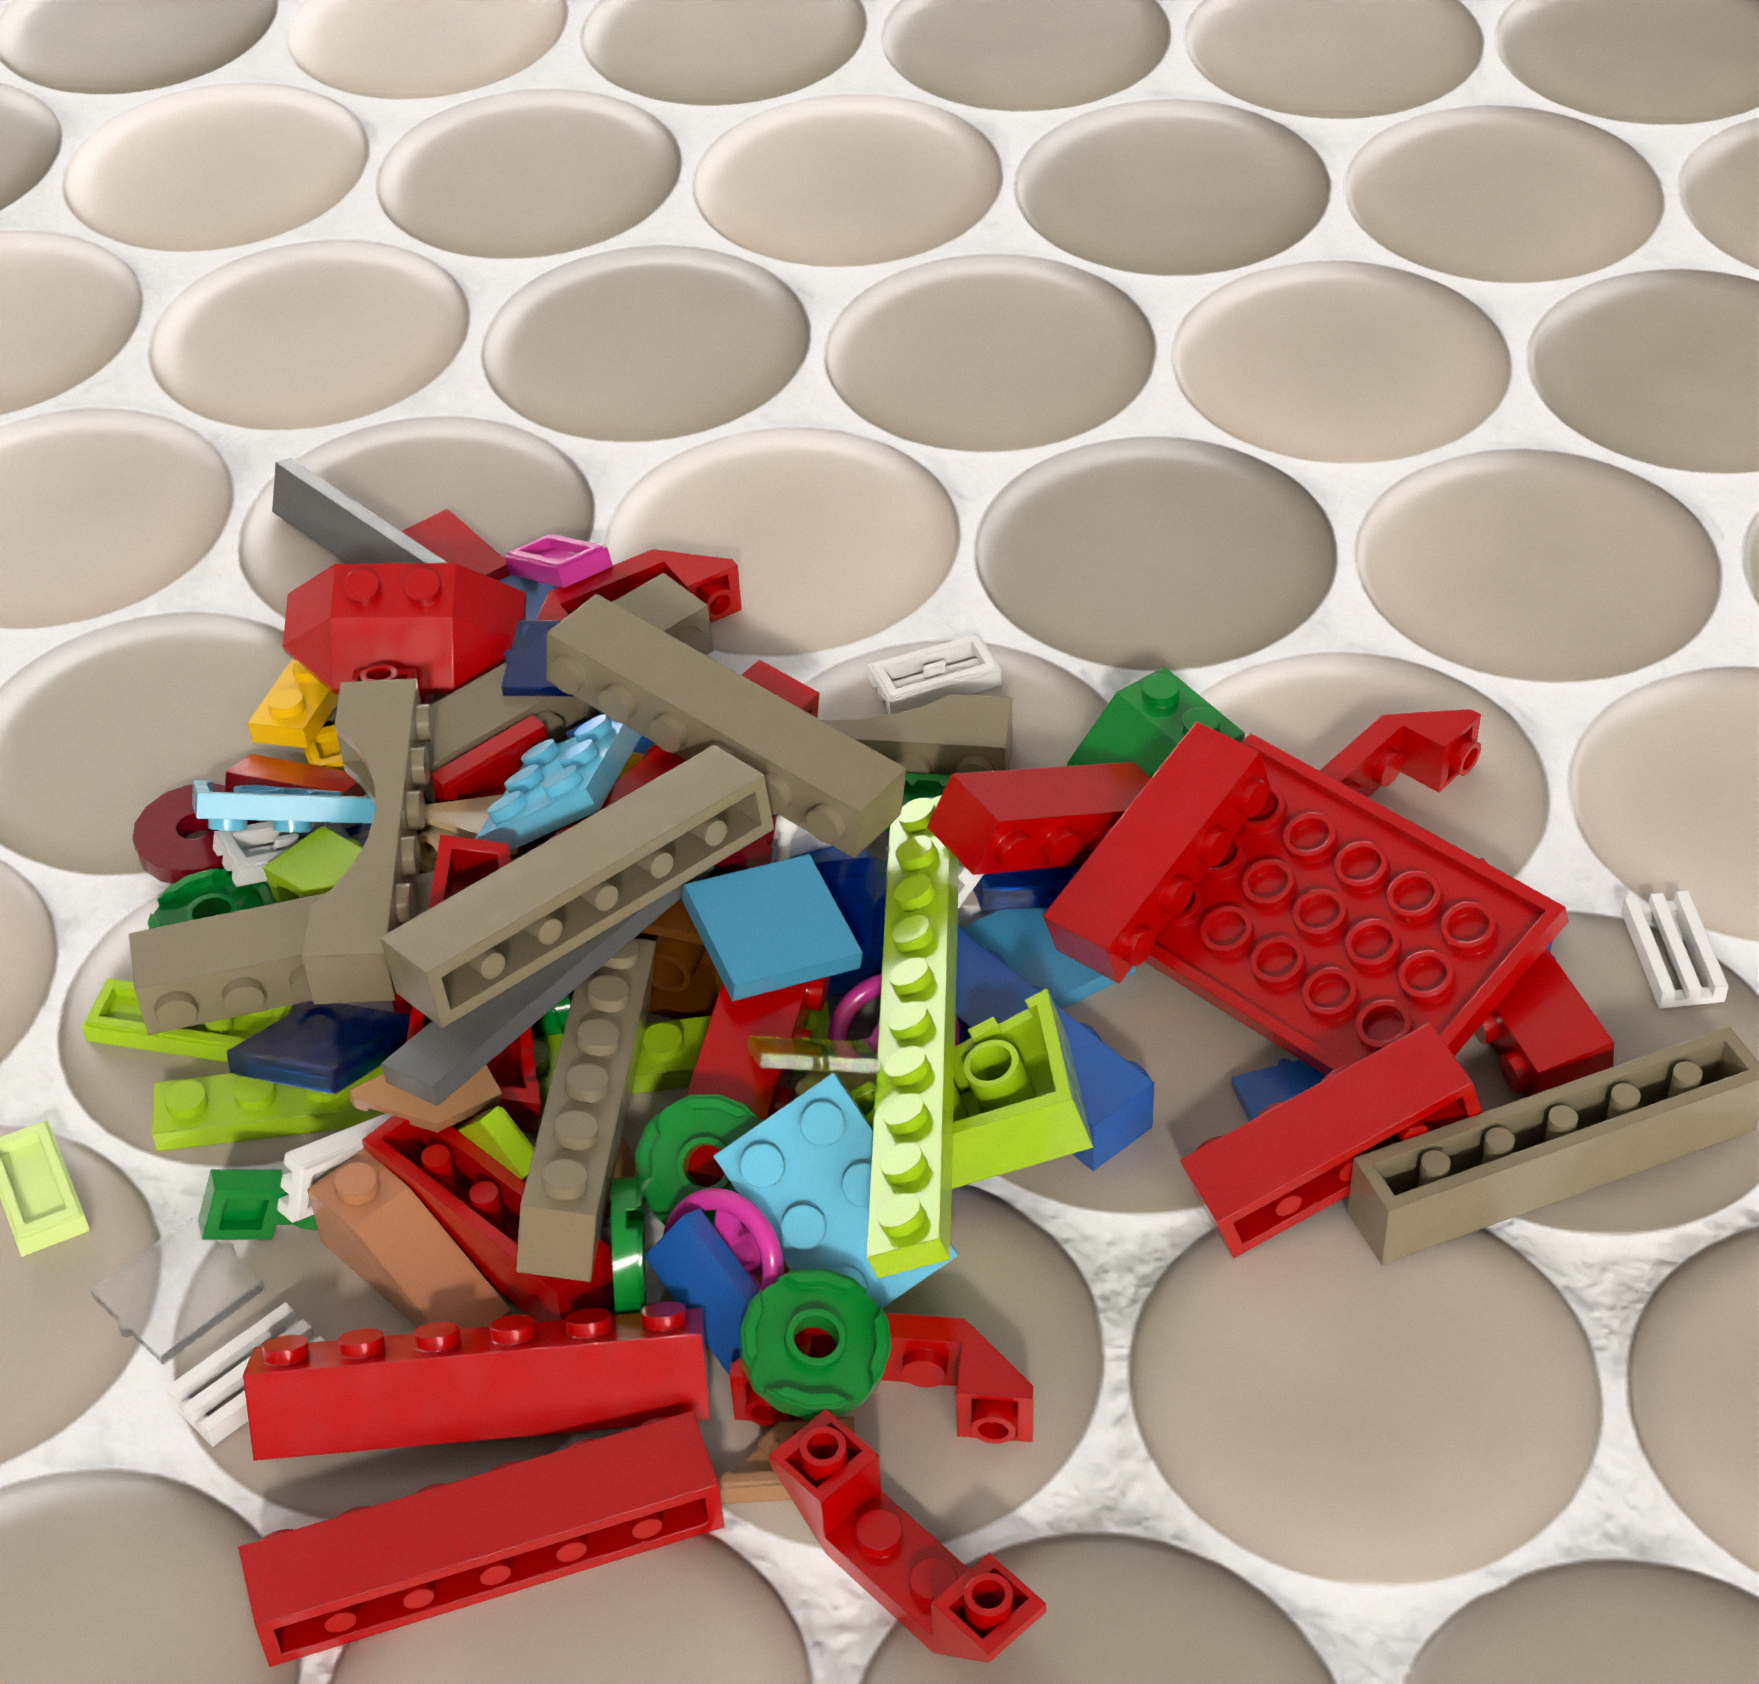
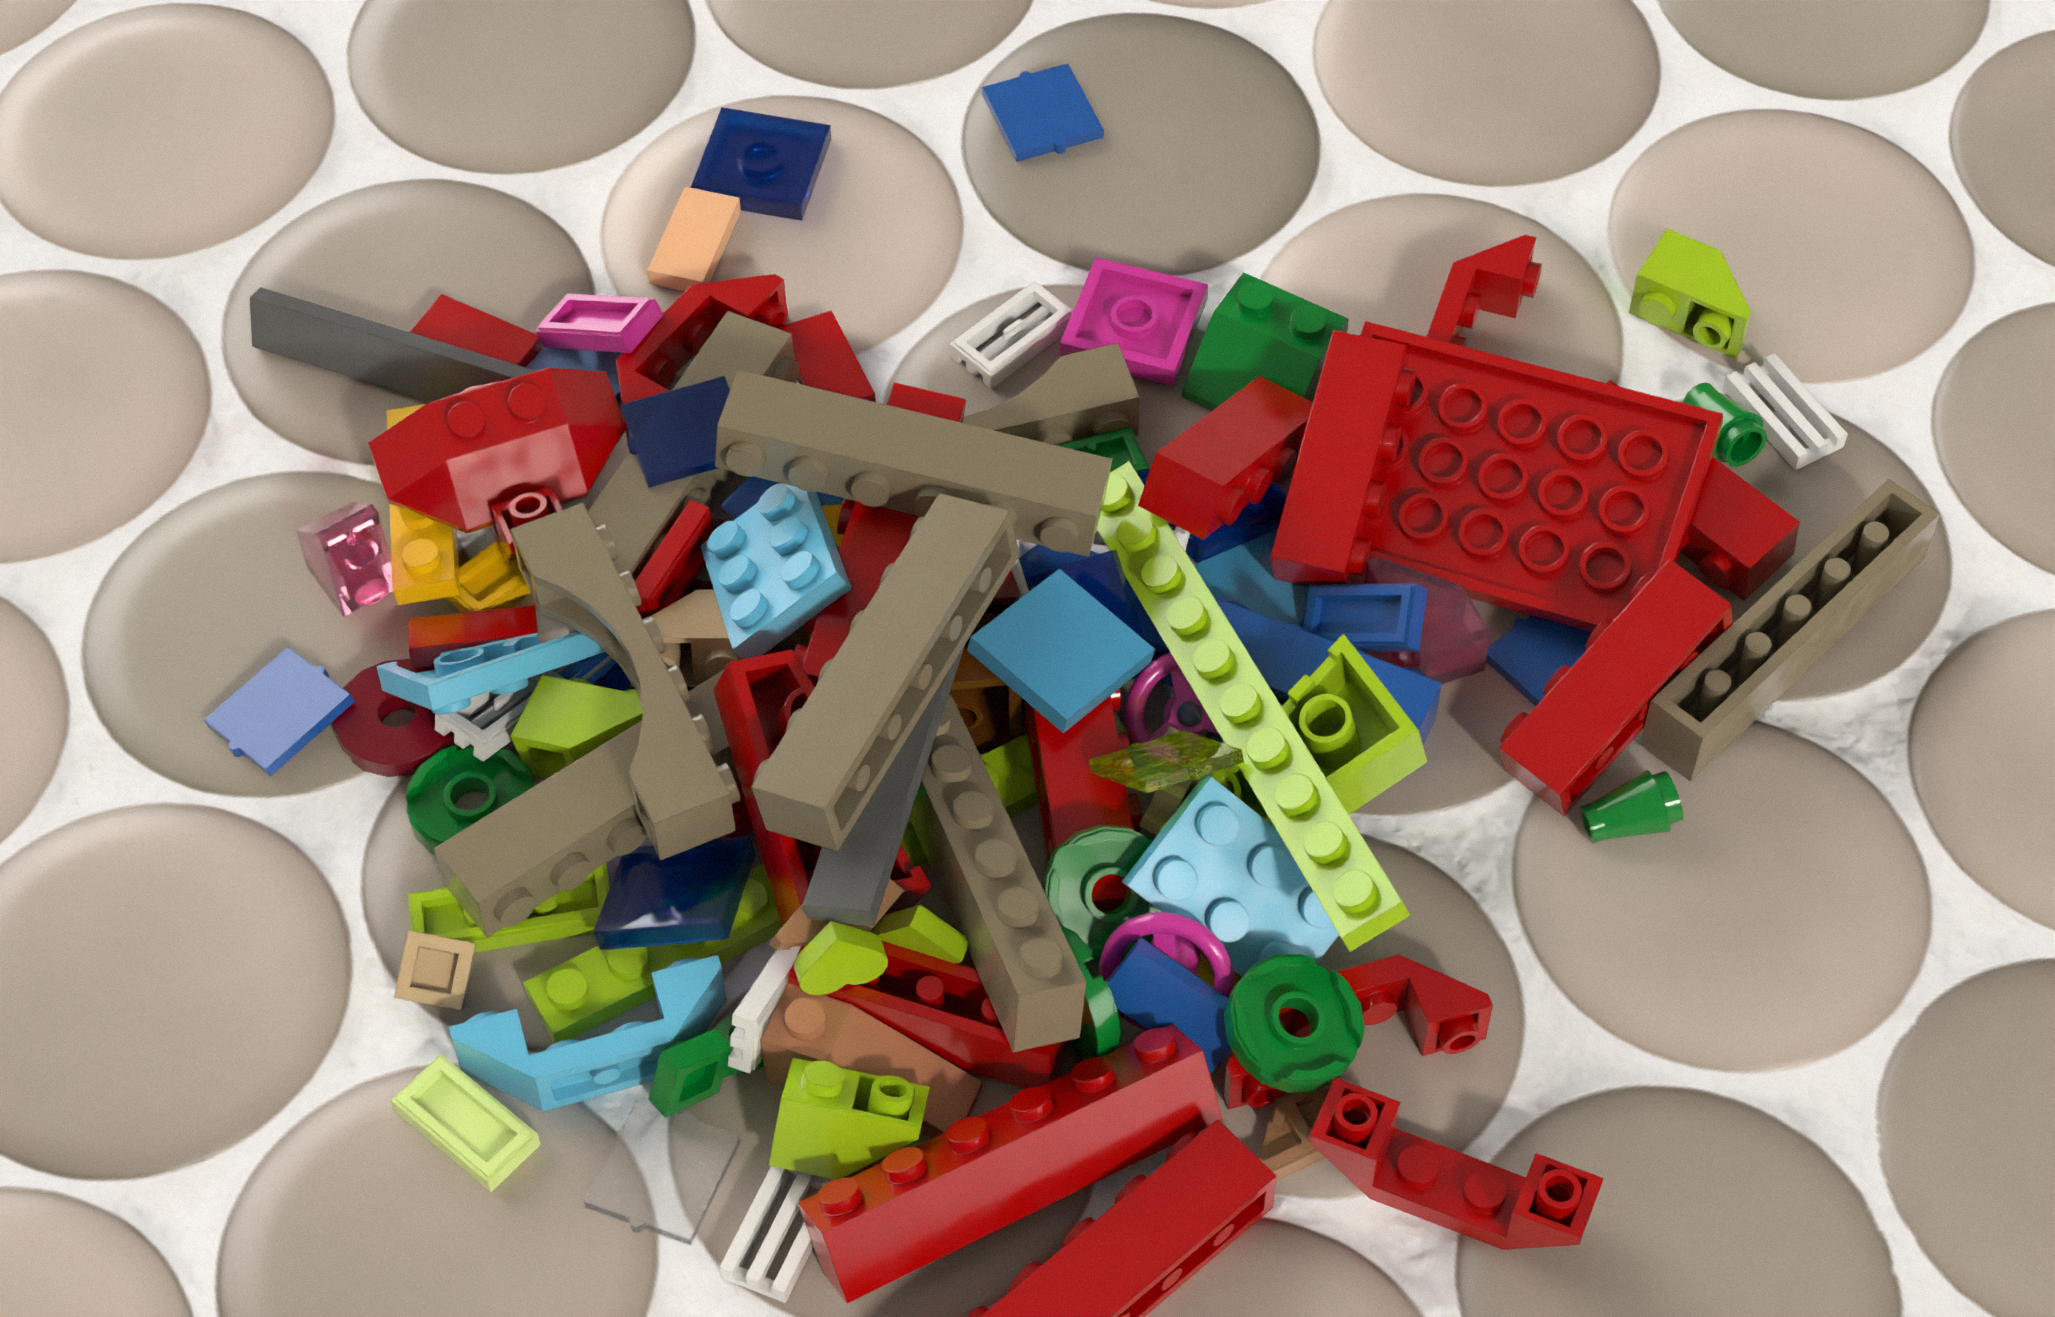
camera: 25 degrees left, 10 degrees up
(85, 1046) = (435, 970): none -> tan plate
(100, 798) = (279, 711): none -> piece
(172, 1171) = (573, 1070): none -> medium azure slope
(226, 685) = (348, 556): none -> clear pink slope
(338, 1282) = (843, 1118): none -> lime slope
(405, 1132) = (839, 958): none -> lime tile
(696, 520) = (694, 239): none -> light nougat tile
(746, 637) = (827, 358): none -> red tile
(792, 479) = (764, 161): none -> clear blue tile
(1053, 689) = (1142, 312): none -> dark pink plate
(1074, 501) = (1042, 112): none -> blue piece
(1117, 1001) = (1368, 615): none -> blue tile
(1182, 1031) = (1453, 631): none -> clear pink slope
(1301, 1268) = (1634, 809): none -> green cone
(1598, 943) = (1742, 430): none -> green cone
(1623, 810) = (1692, 294): none -> lime slope

